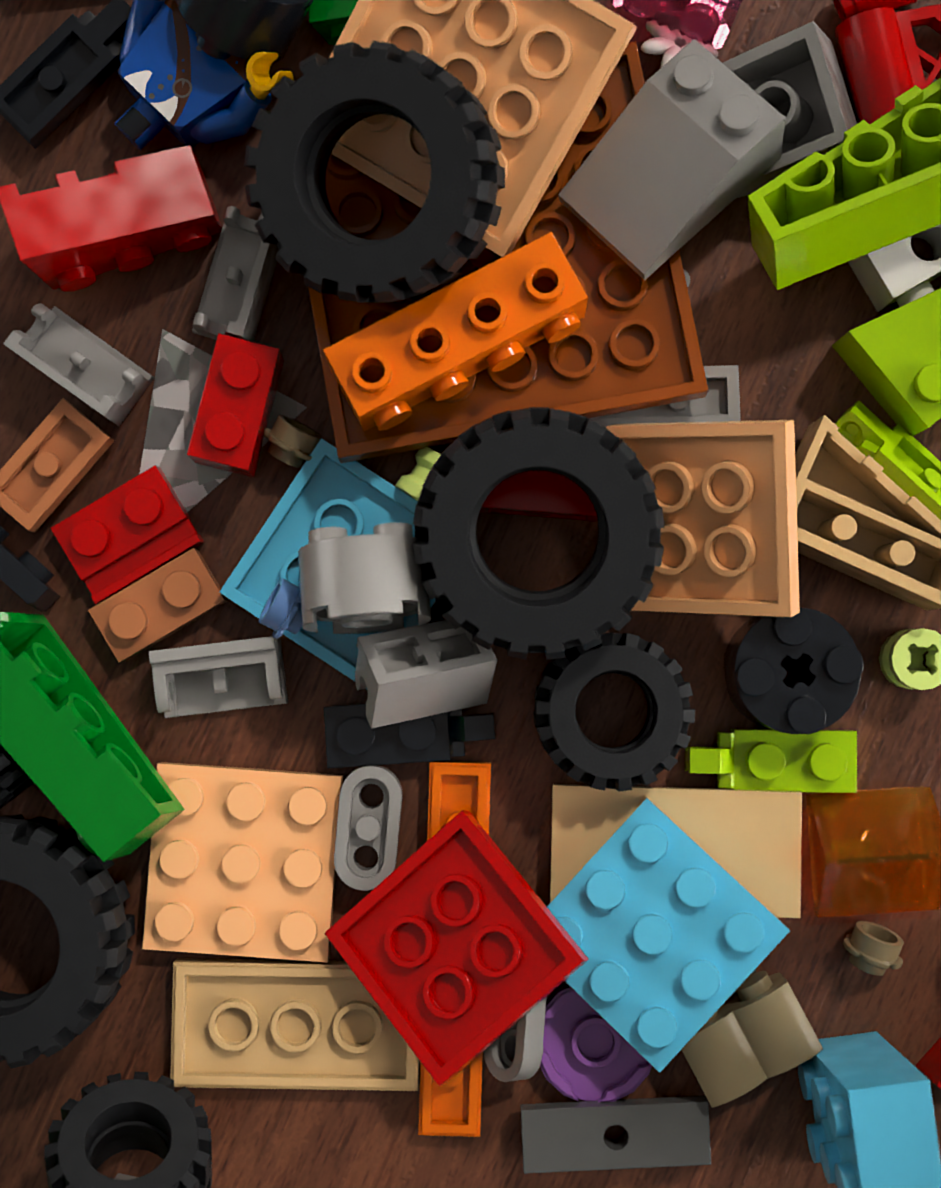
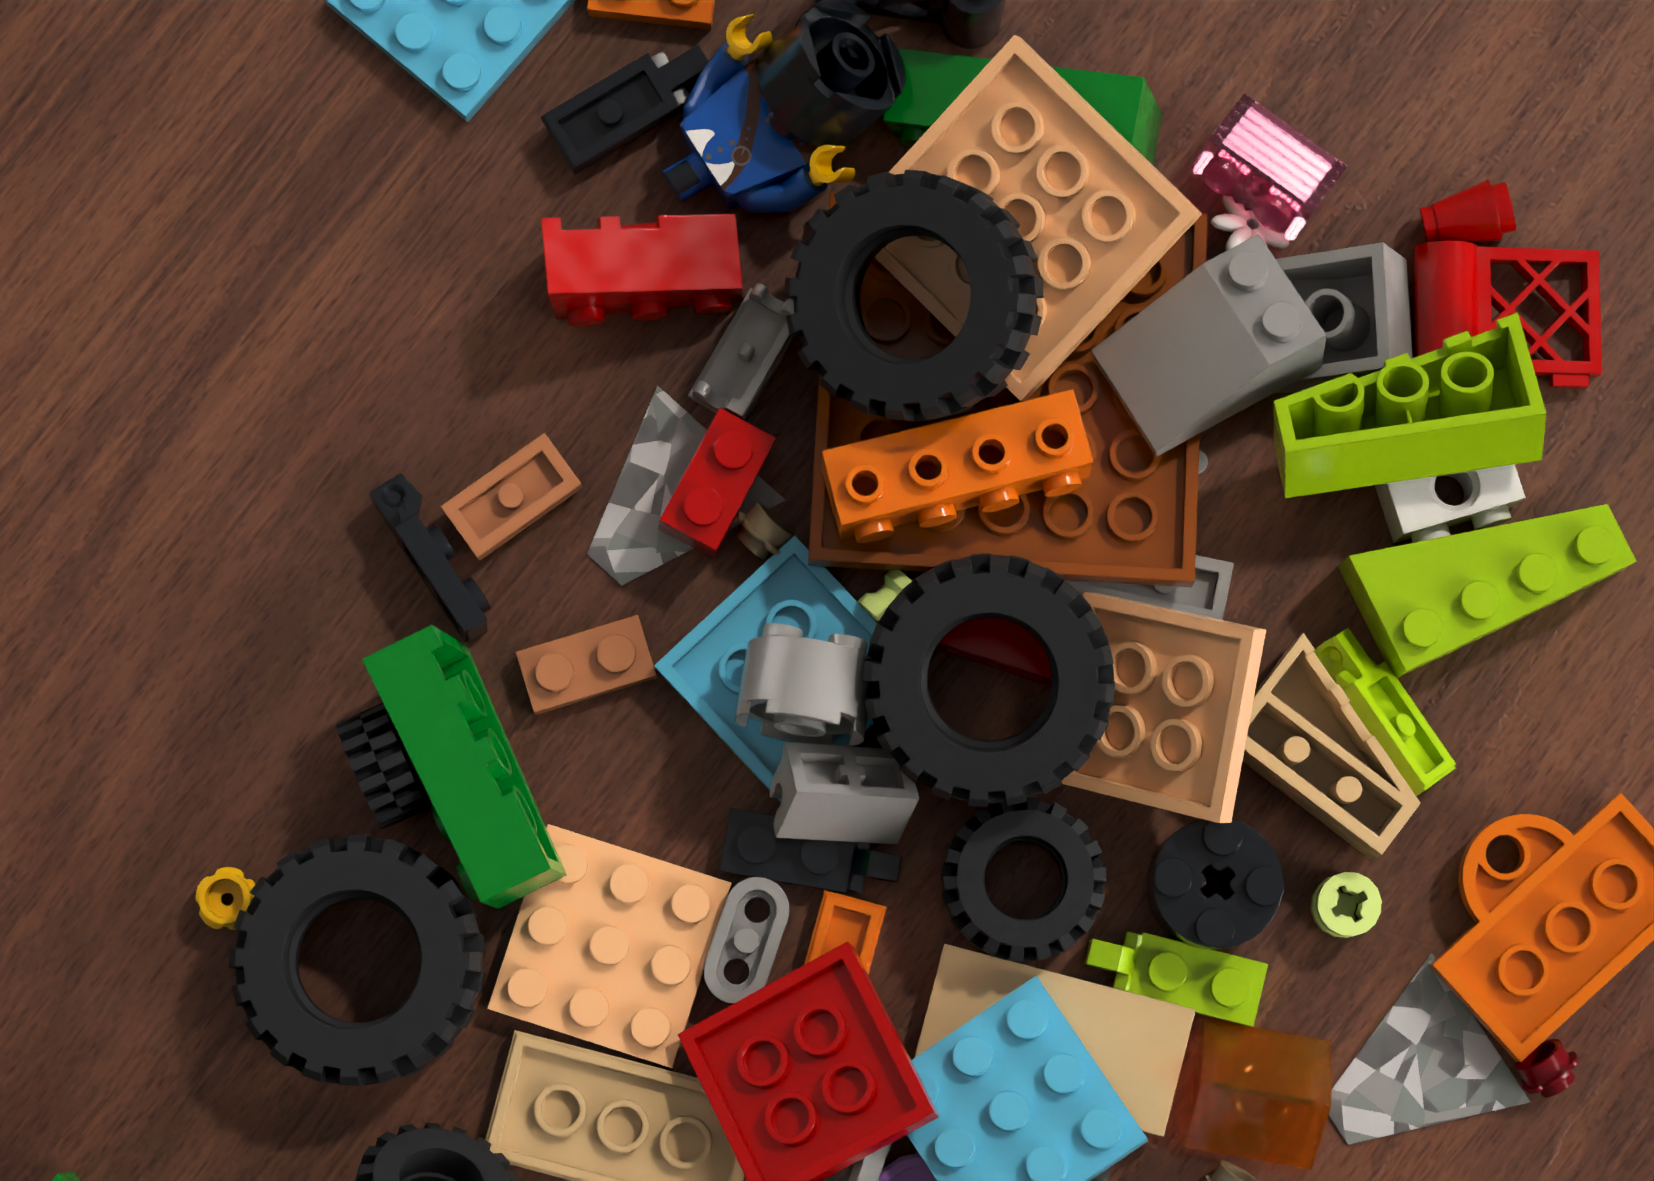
camera: 15 degrees right, 5 degrees down
(81, 362) = (569, 402): light grey hinge -> none
(127, 534) = (572, 585): red plate -> none
(219, 676) = (633, 751): light grey hinge -> none
(283, 609) = (717, 697): medium blue plate -> none

